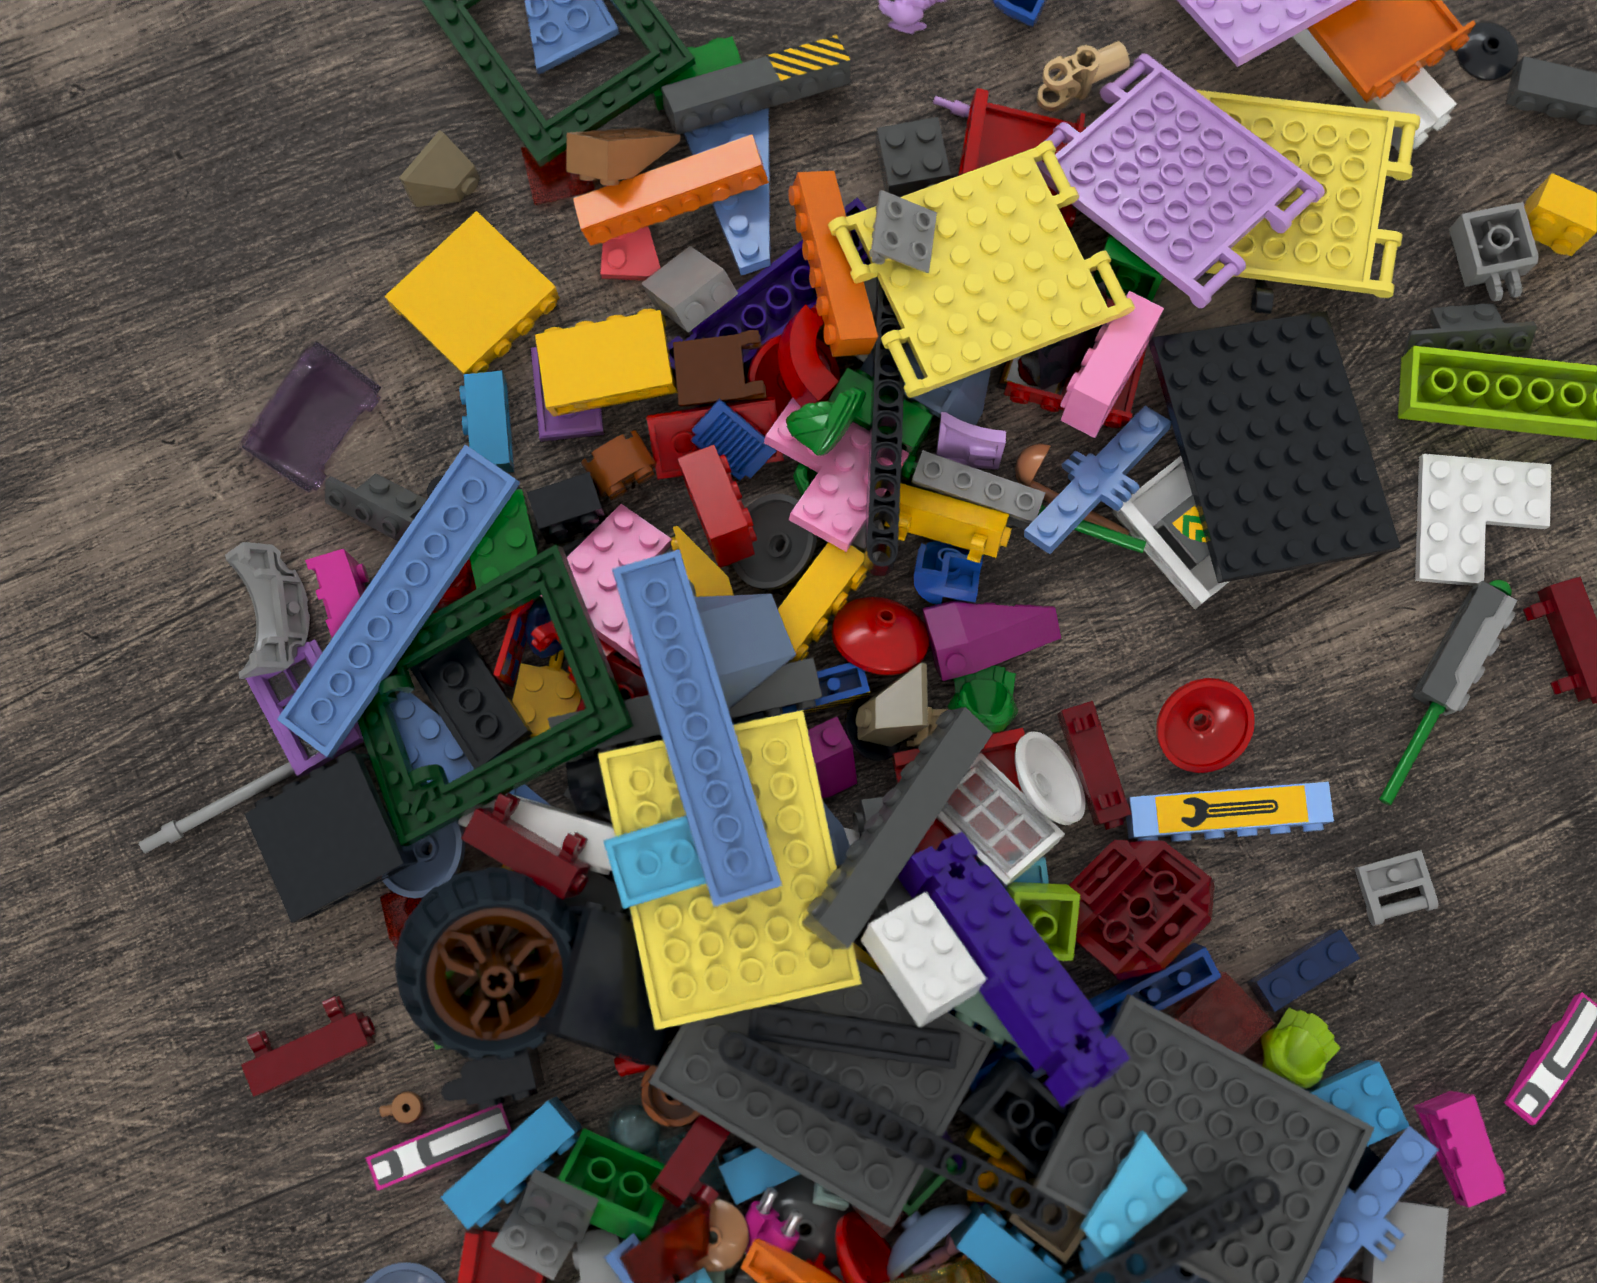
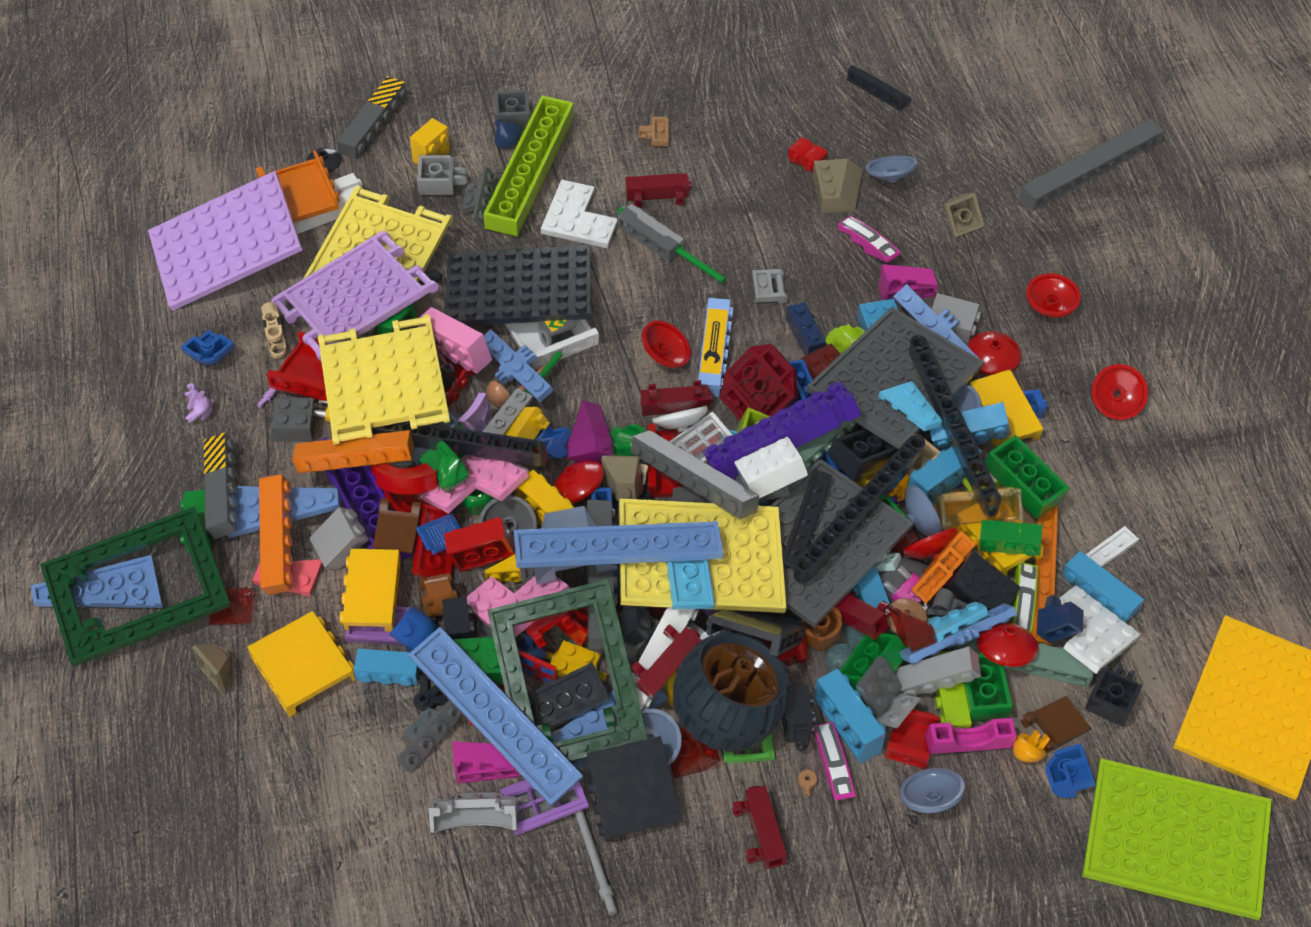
camera: 80 degrees left, 25 degrees down
(309, 416) = (347, 770): clear purple windscreen -> none
(552, 450) = (413, 628): none -> blue brick
(615, 152) = (239, 559): medium nougat slope -> none
(902, 232) = (352, 405): light grey hinge -> none

